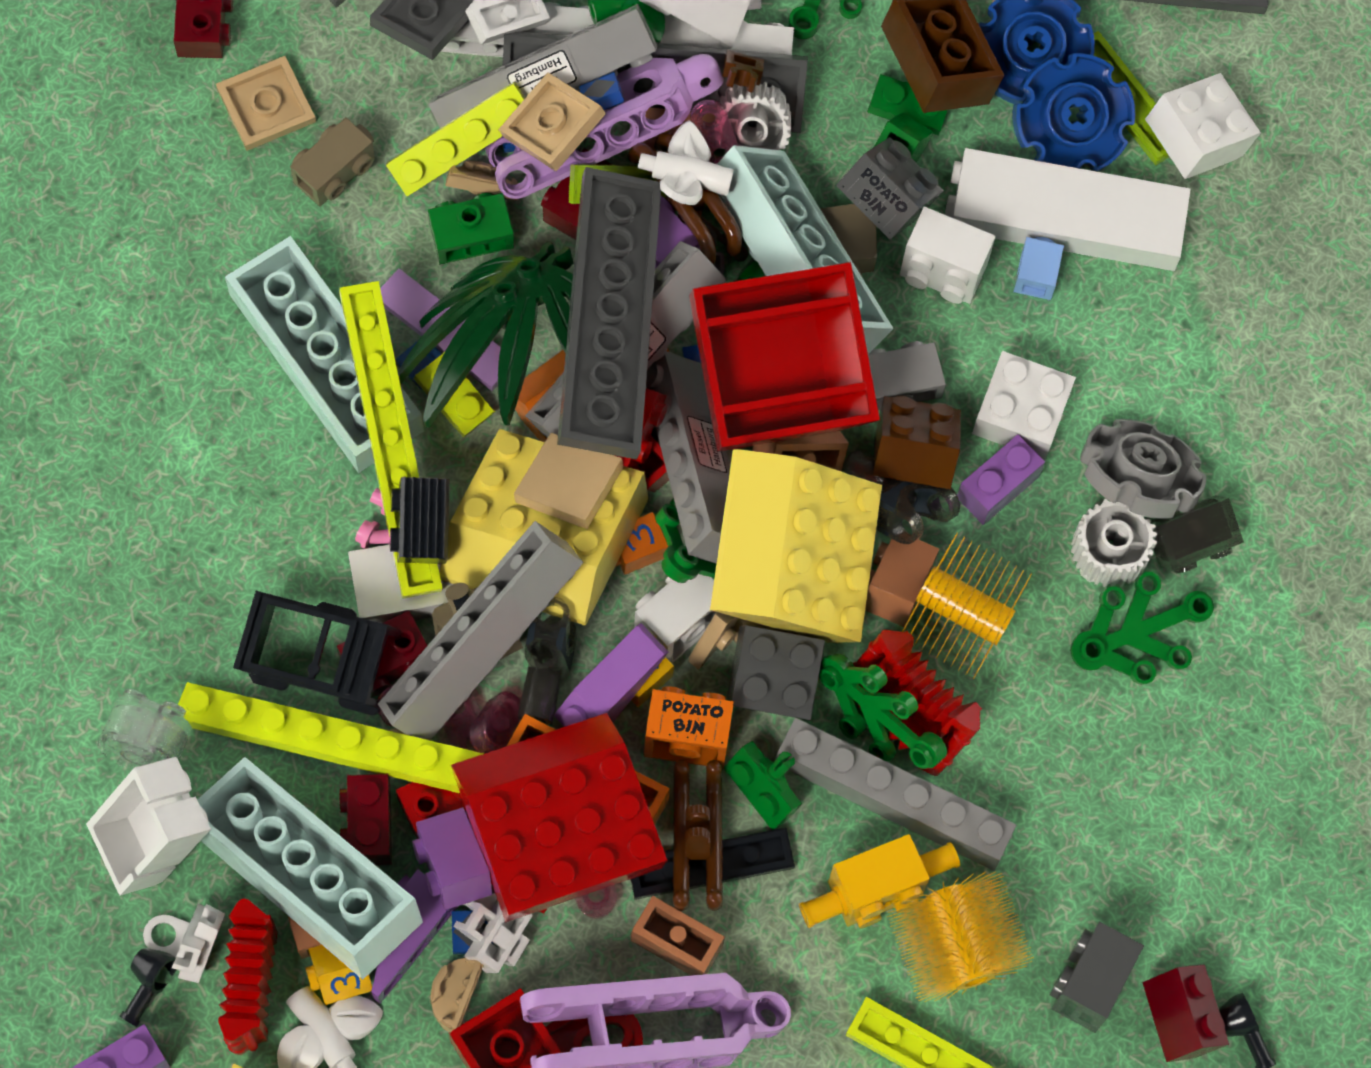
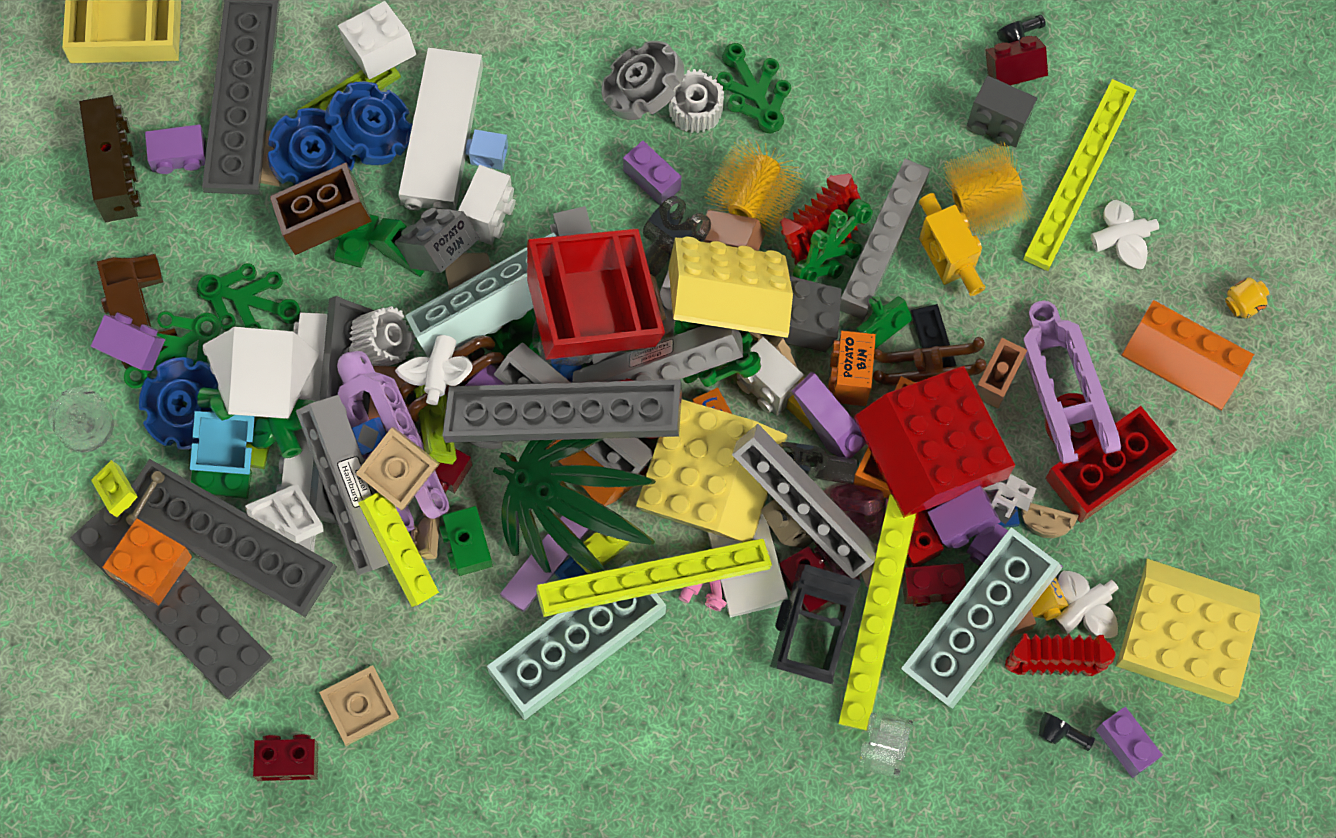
camera: 90 degrees left, 0 degrees up
(148, 825) = (963, 729): white piece -> none
(192, 940) = (1031, 698): white piece -> none
(333, 161) = (408, 639): dark tan brick -> none
(421, 520) = (721, 548): black brick -> none
(568, 482) = (691, 451): tan tile -> none
(716, 133) = (396, 354): clear pink plate -> none
(742, 70) = (348, 336): reddish brown plate -> none
(917, 442) = (636, 209): reddish brown brick -> none
(1023, 402) = (595, 158): white brick -> none
(1201, 533) = (688, 45): clear smoke brick -> none

